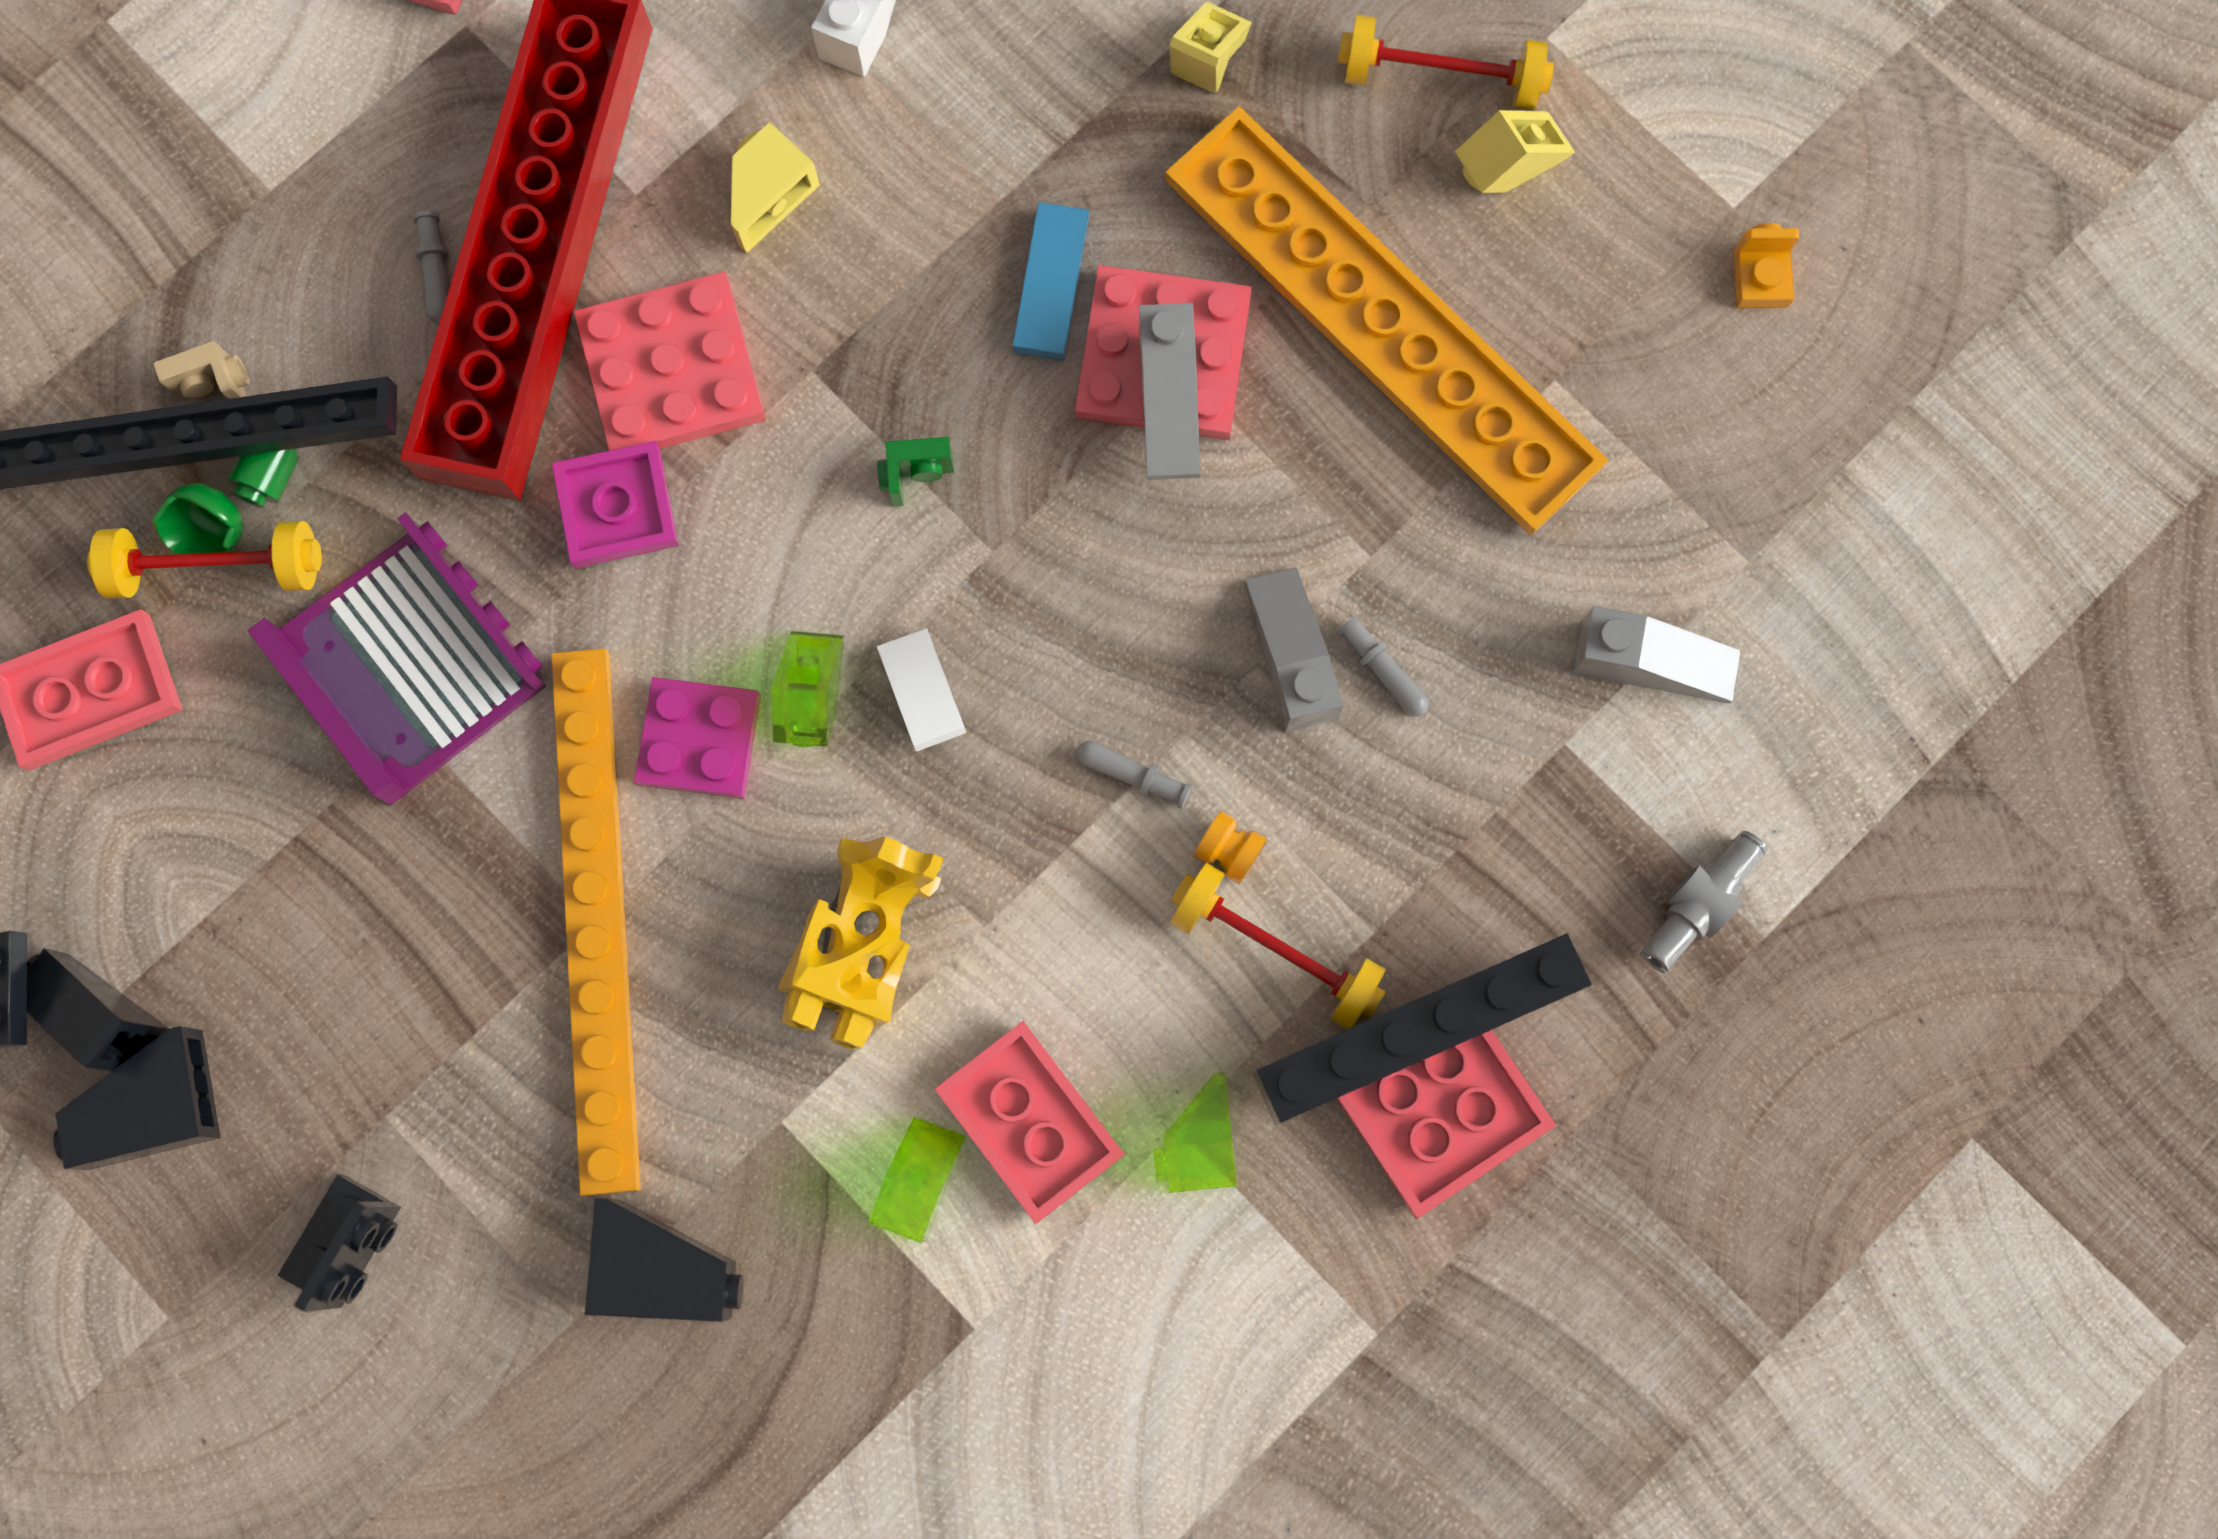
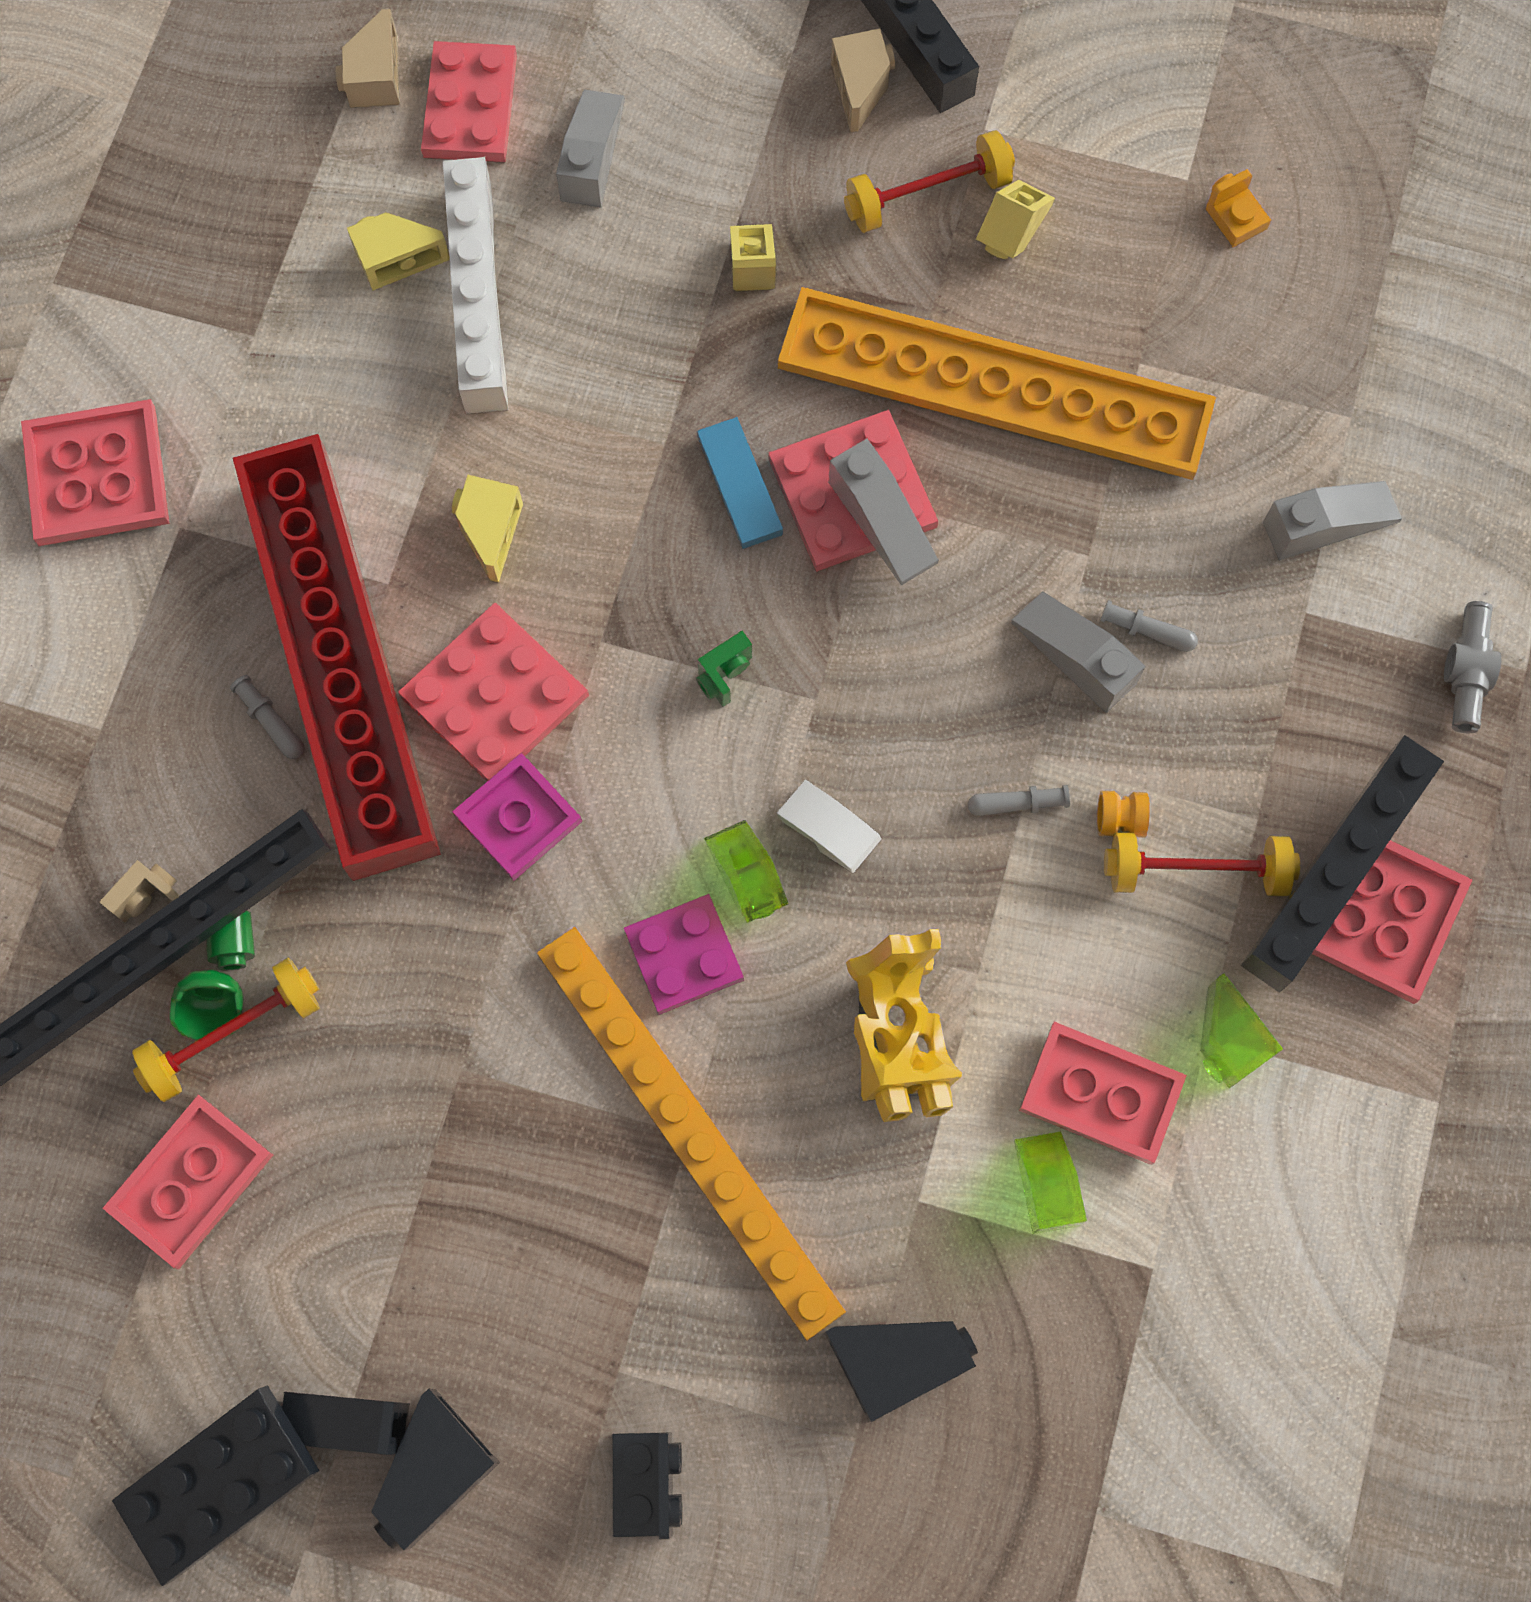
camera: 30 degrees left, 5 degrees down
(403, 663) = (425, 1020): panel -> none

